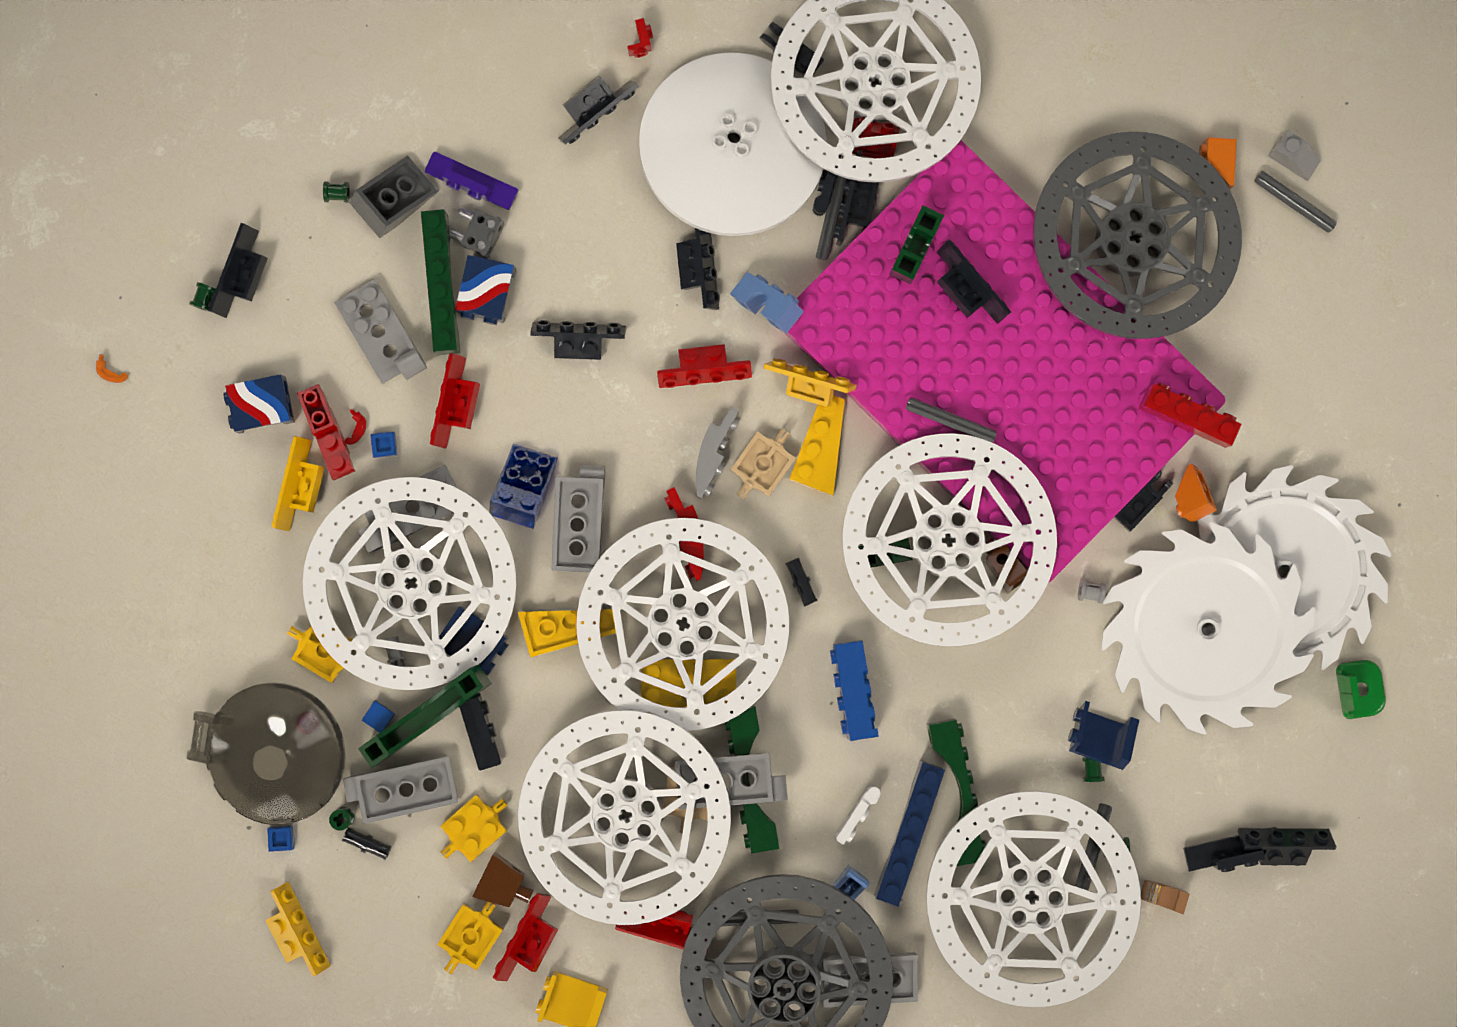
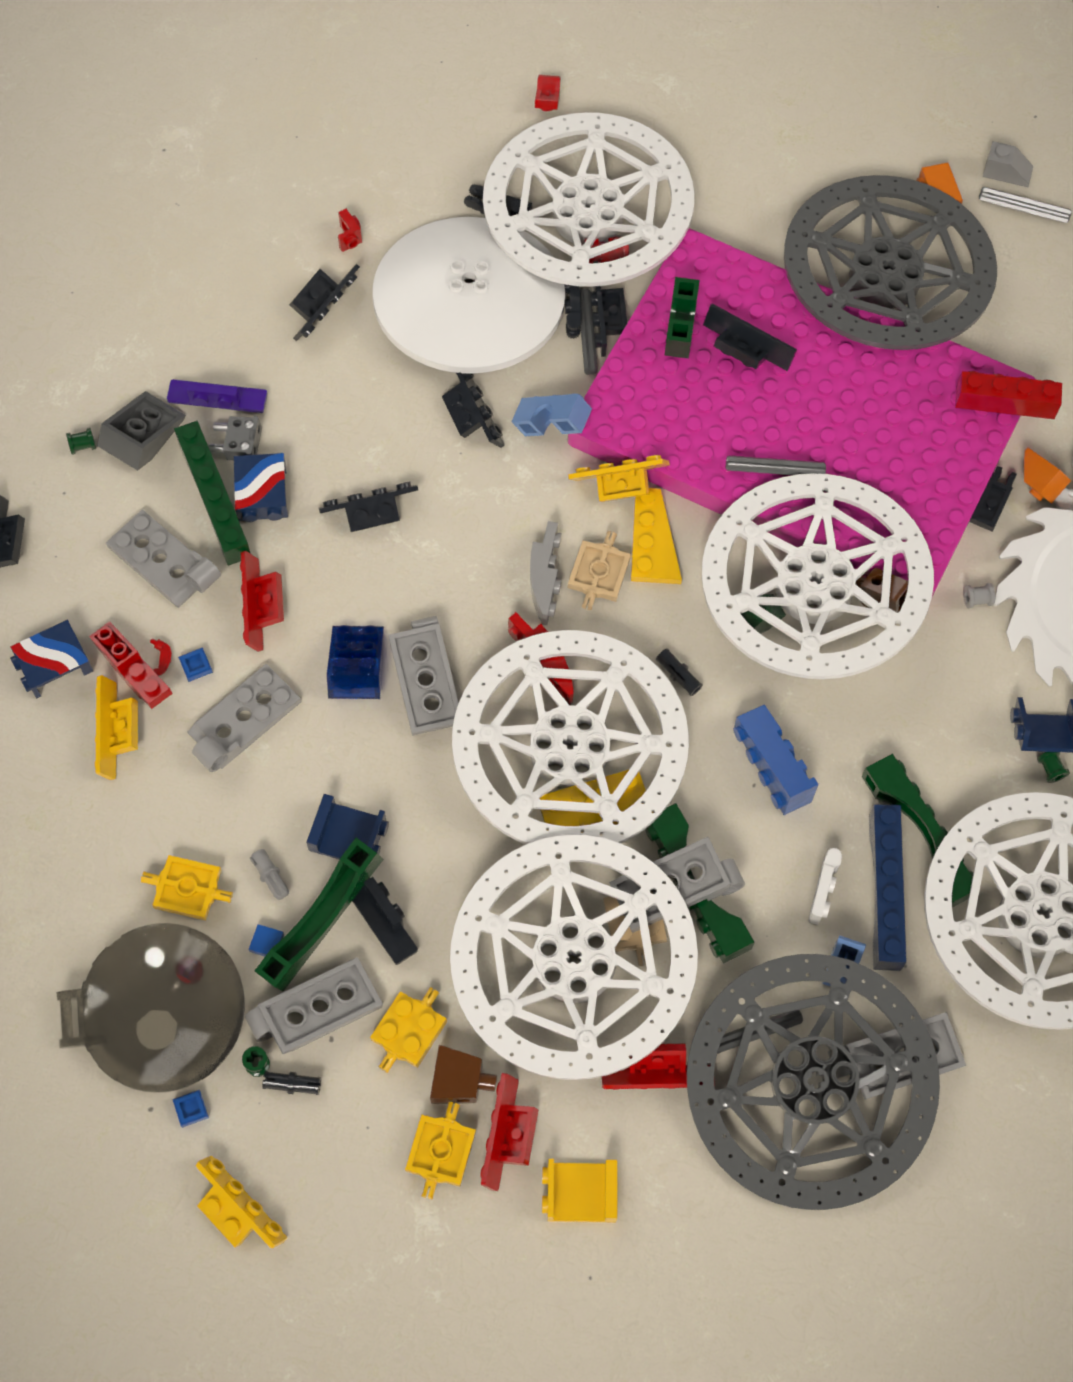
camera: 15 degrees left, 20 degrees down
(365, 635) = (262, 777): white piece -> none
(557, 629) = (439, 792): yellow wing -> none
(703, 366) = (507, 499): red bracket -> none

